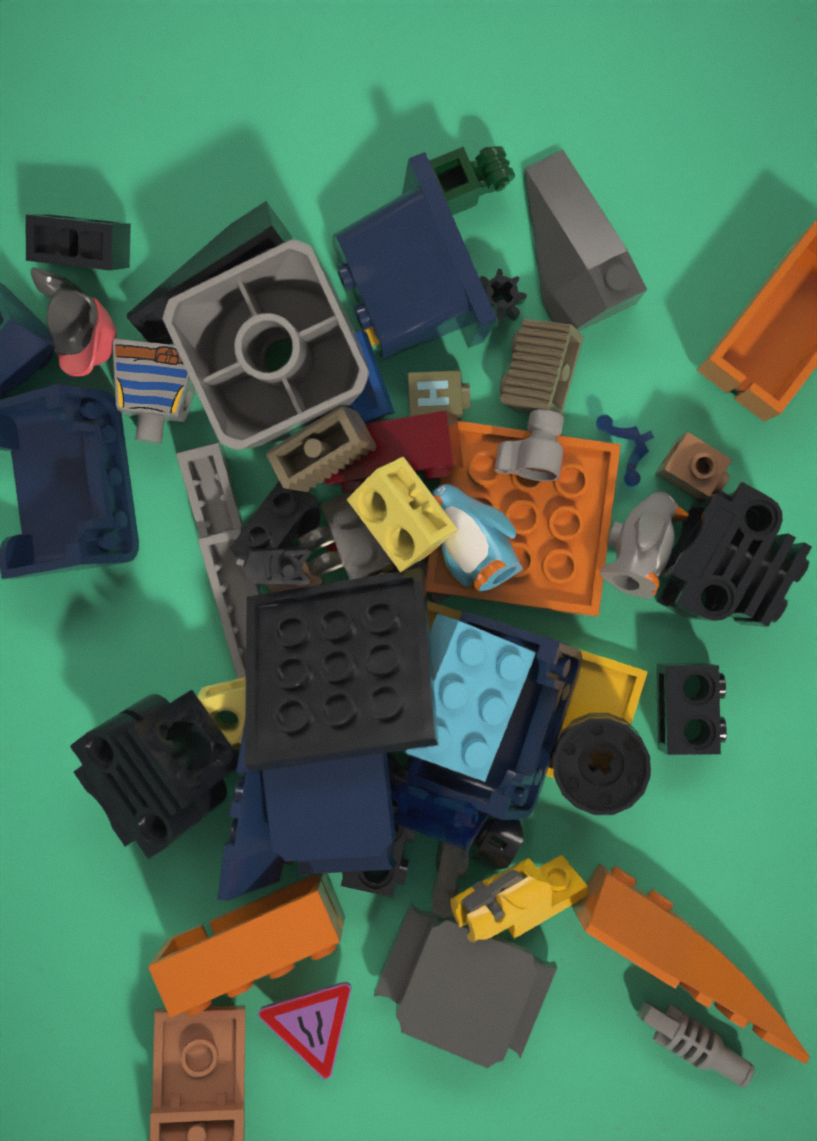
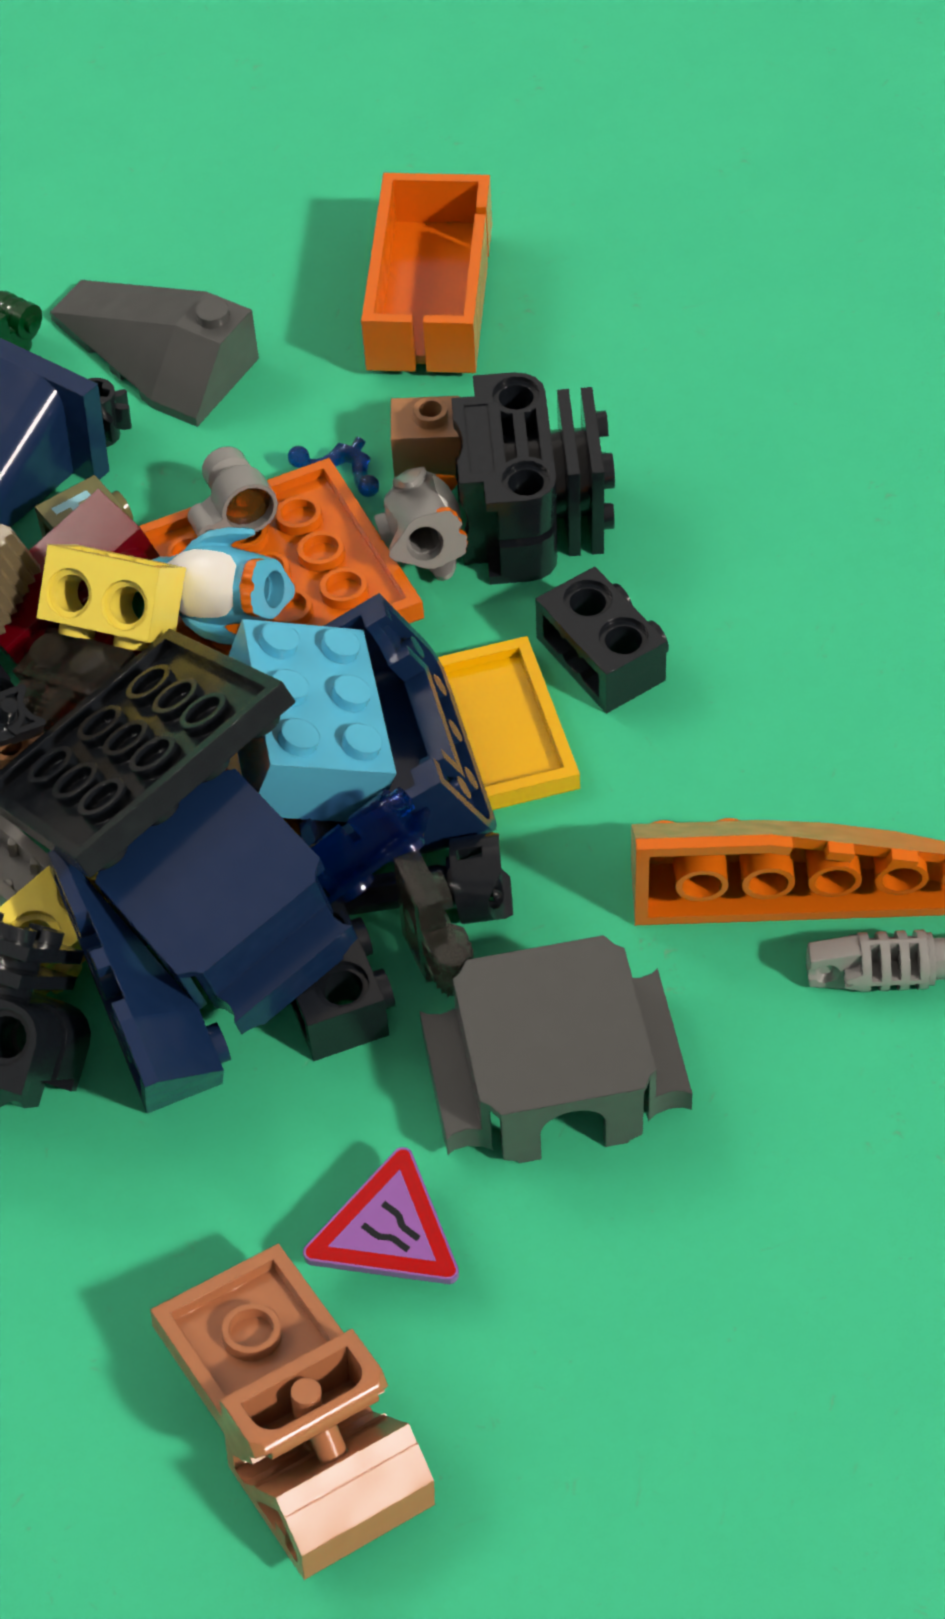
camera: 30 degrees left, 35 degrees down
(248, 945) = (229, 1154): orange piece -> none
(518, 898) = (532, 895): yellow plate -> none
(541, 366) = (179, 432): dark tan brick -> none
(595, 788) = (529, 708): black wheel -> none

